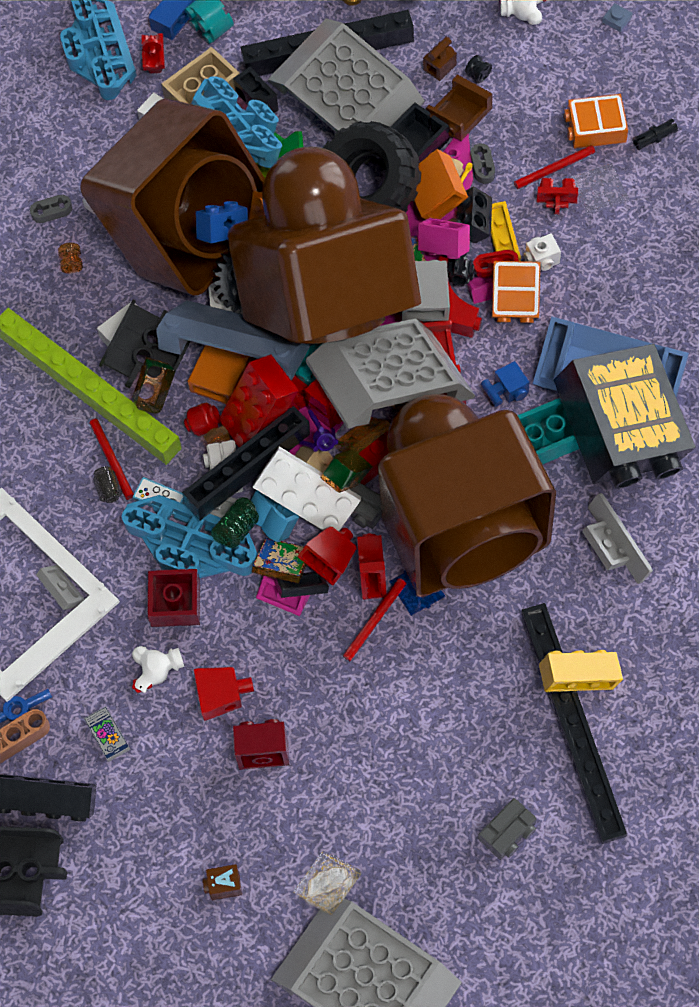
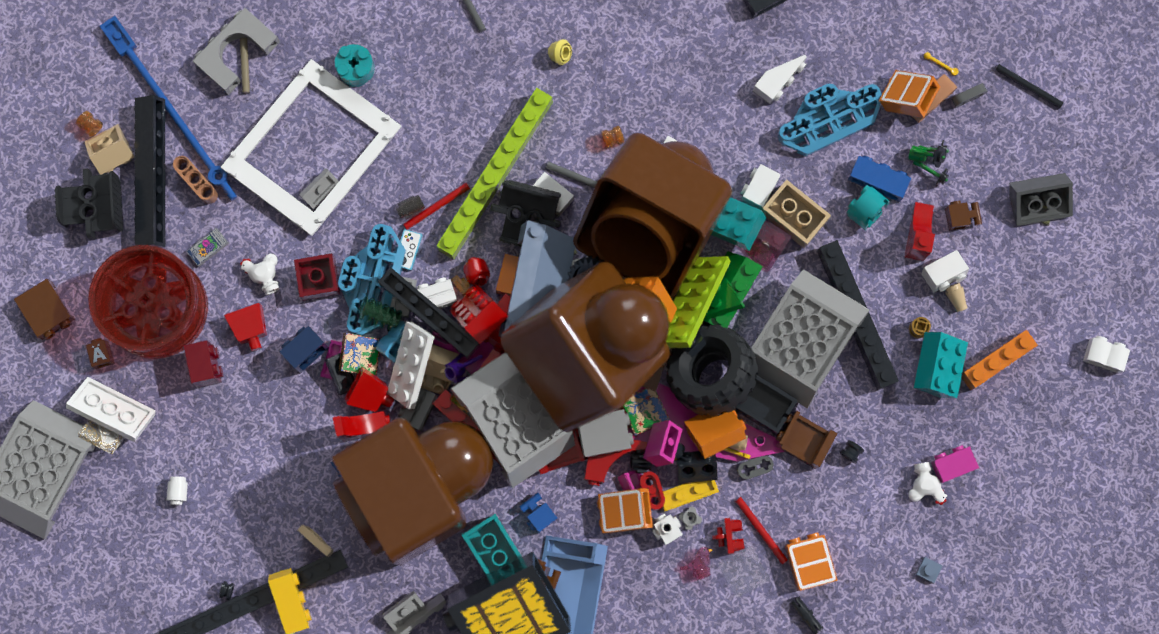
camera: 75 degrees right, 15 degrees up
(46, 92) = (774, 80): none -> white slope
(51, 208) = (663, 109): dark grey beam -> none
(111, 300) = (570, 174): none -> dark grey bar
(149, 949) = (44, 310): none -> reddish brown panel
(153, 53) = (826, 166): red hips -> none
(154, 744) = (115, 279): none -> clear red wheel
(166, 378) = (479, 227): clear orange piece -> none
(215, 221) = (625, 255): blue brick -> none
(252, 87) = (793, 261): black brick -> none
(253, 125) = (748, 259): dark azure connector -> none
(264, 620) = (303, 349): none -> dark blue brick
(300, 872) = (110, 409): none -> white plate
(346, 471) = (438, 398): piece -> none
(374, 619) = (316, 432): red bar -> none
(420, 801) = (177, 490): none -> white brick
(440, 59) = (855, 417): reddish brown brick -> none
(506, 630) = (316, 540): none -> tan tile
(508, 829) = (161, 559): dark grey brick -> none
(531, 227) = (695, 518): none -> light grey plate
(557, 752) = (226, 590): none -> black bush
(586, 228) = (700, 564): none -> clear pink animal

